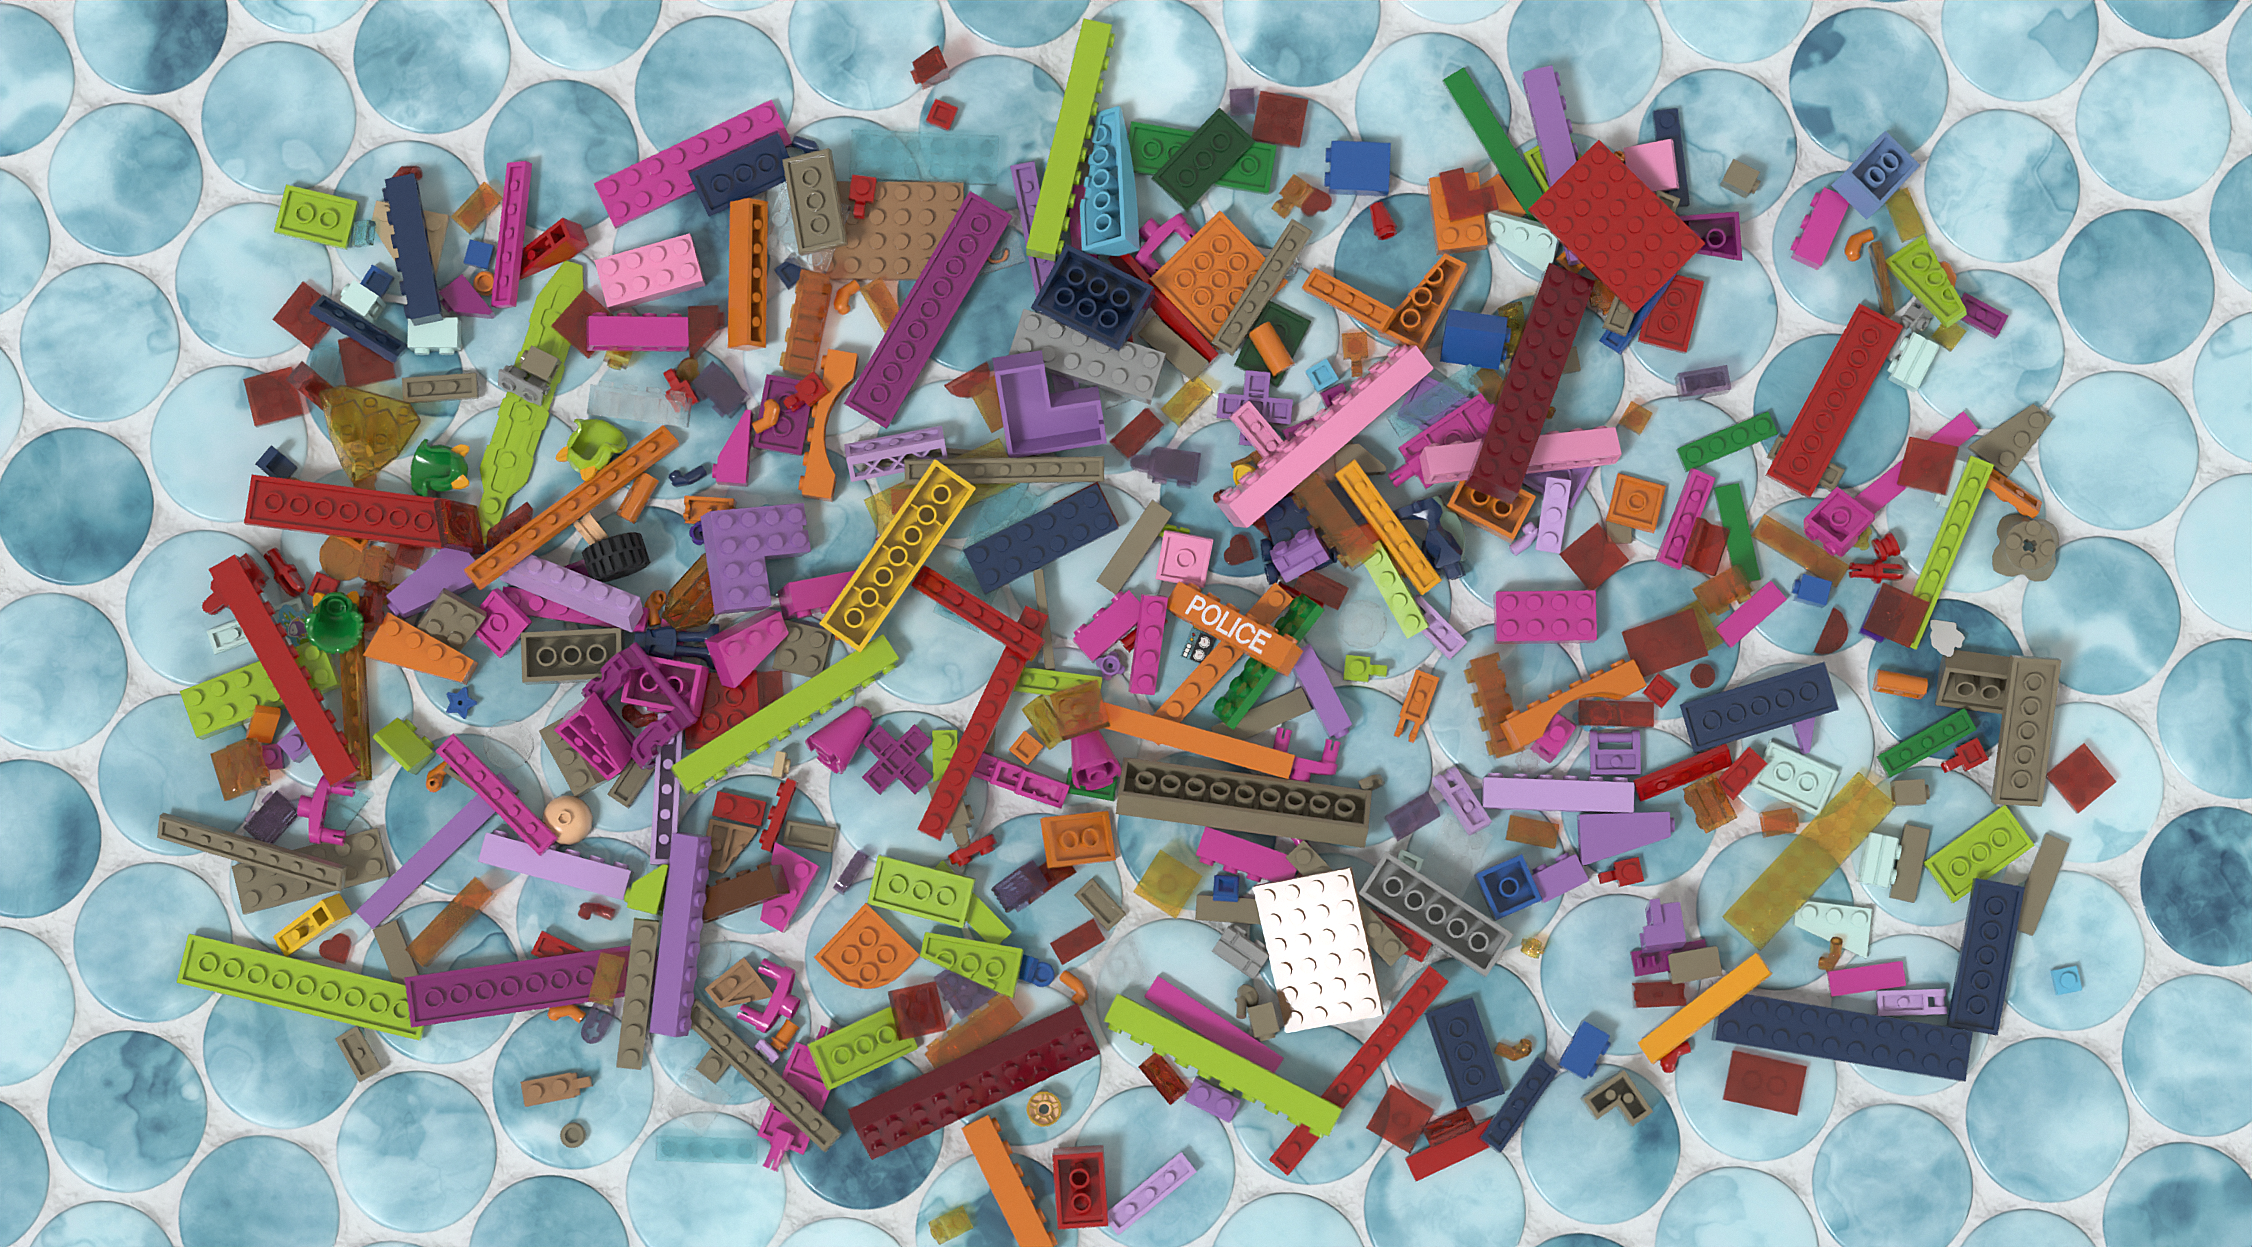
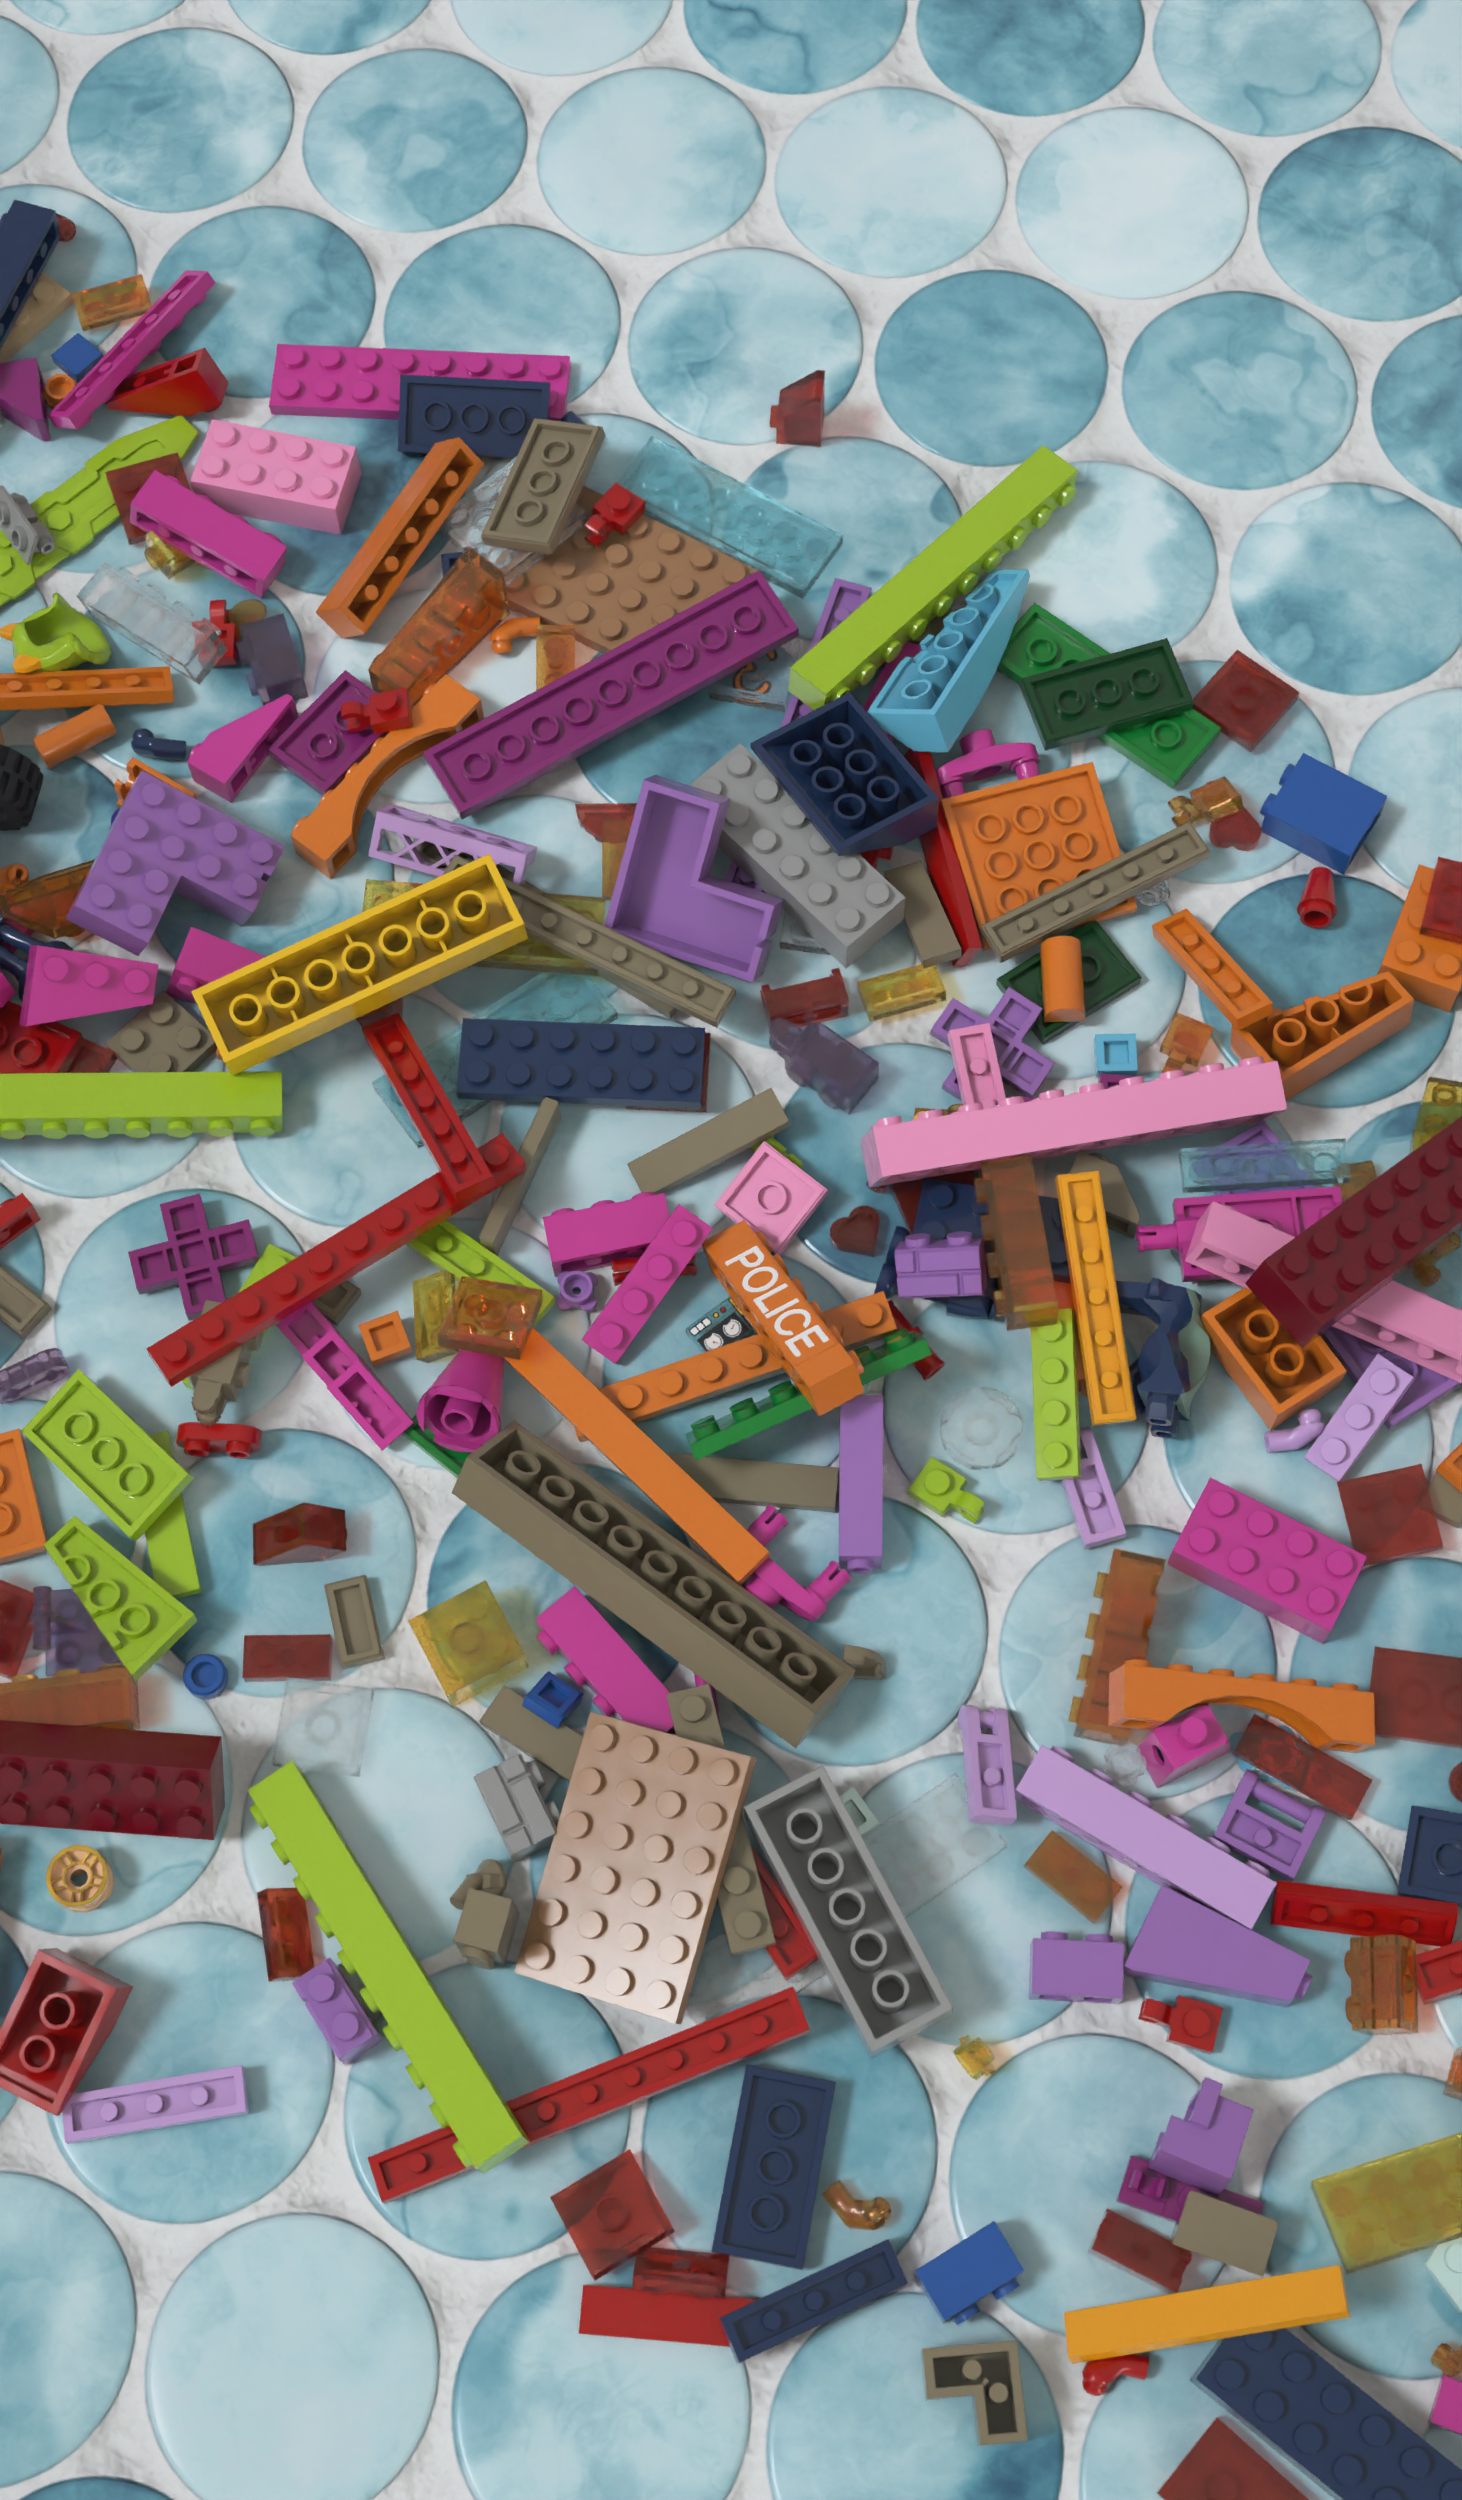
camera: 30 degrees right, 15 degrees down
(539, 364) = (59, 510): dark tan brick -> none
(703, 327) = (300, 576): clear red slope -> none
(770, 416) = (311, 721): orange arm -> none
(781, 765) = (28, 1175): tan plate -> none
(840, 738) = (133, 1182): dark pink cone -> none
(942, 115) = (782, 478): red plate -> none
(1020, 886) = (250, 1525): clear purple brick -> none
(1028, 968) = (187, 1651): blue tile -> none
(1075, 984) = (245, 1721): orange arm -> none
(1077, 839) = (375, 1501): orange plate -> none
(1211, 1024) = (409, 1896): dark pink tile -> none
(1242, 101) = (1203, 656): clear purple plate -> none
(1321, 589) = (949, 1339): clear red hinge -> none
(1412, 816) = (898, 1747): clear purple hinge -> none
(1417, 702) = (999, 1583): orange hinge -> none
(1474, 339) = (1370, 1109): blue brick -> none
(1507, 887) = (987, 1937): blue brick -> none
(1659, 691) = (1390, 1770): red tile -> none

